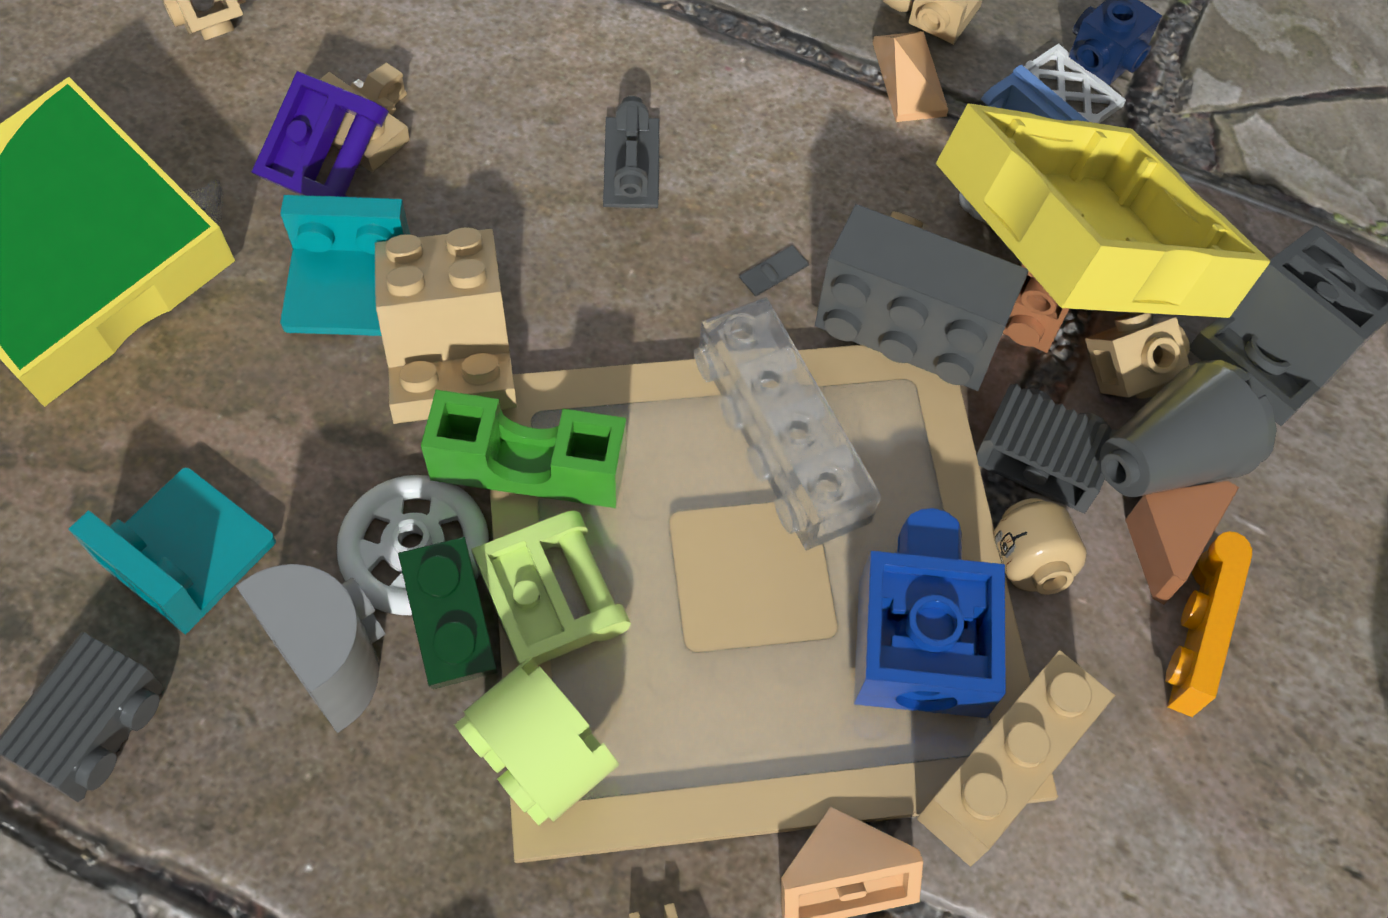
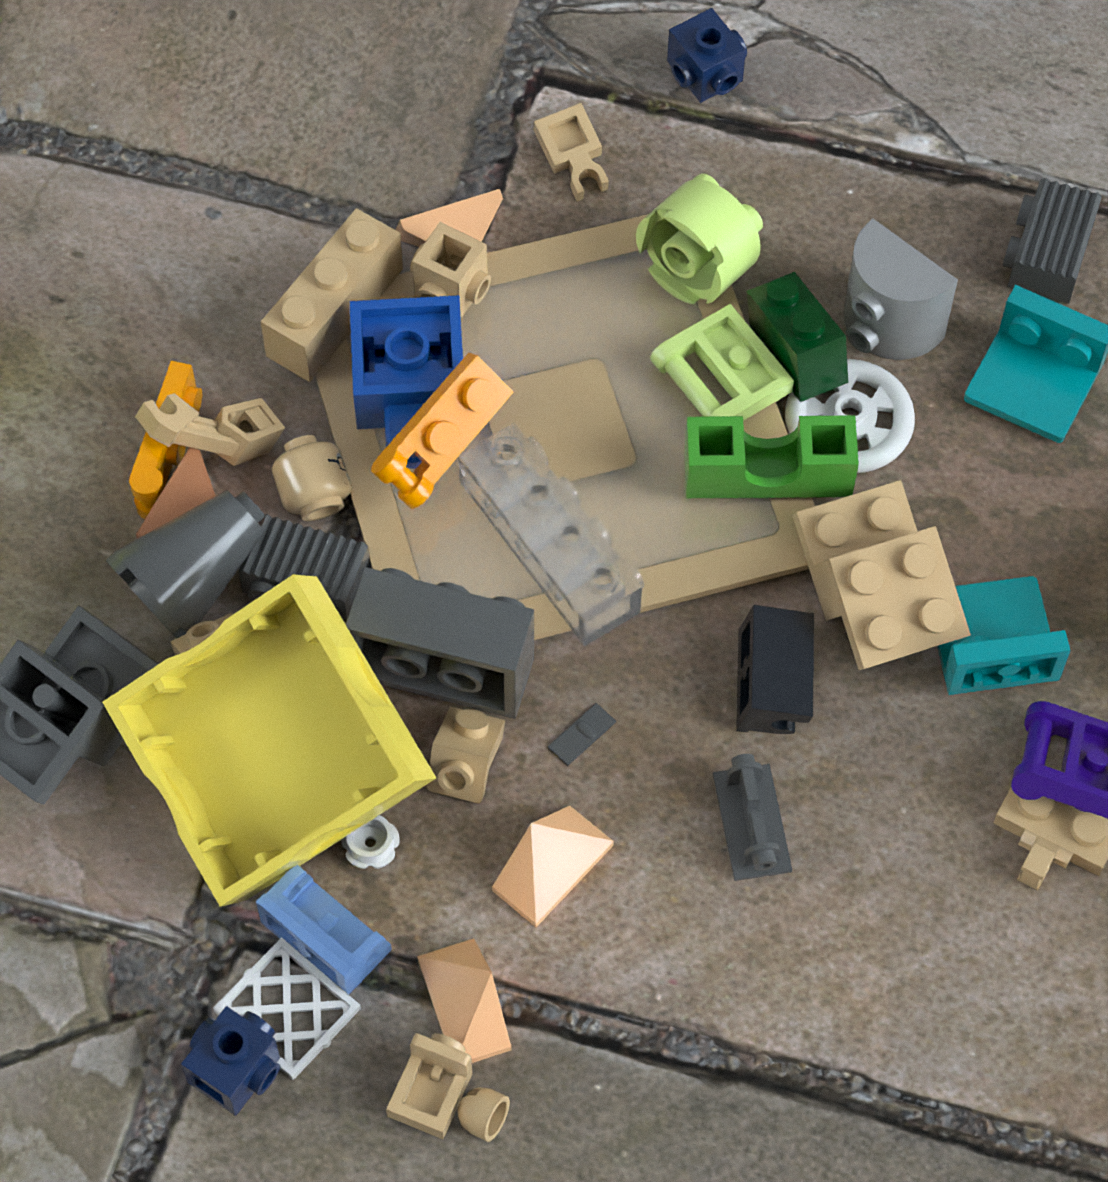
camera: 175 degrees right, 0 degrees up
(576, 274) = (775, 670): none -> black hinge
(818, 163) = (550, 863): none -> light nougat slope
(877, 738) = (451, 266): none -> tan brick
(901, 510) = (442, 429): none -> light orange plate
(1191, 590) = (235, 435): none -> tan piece

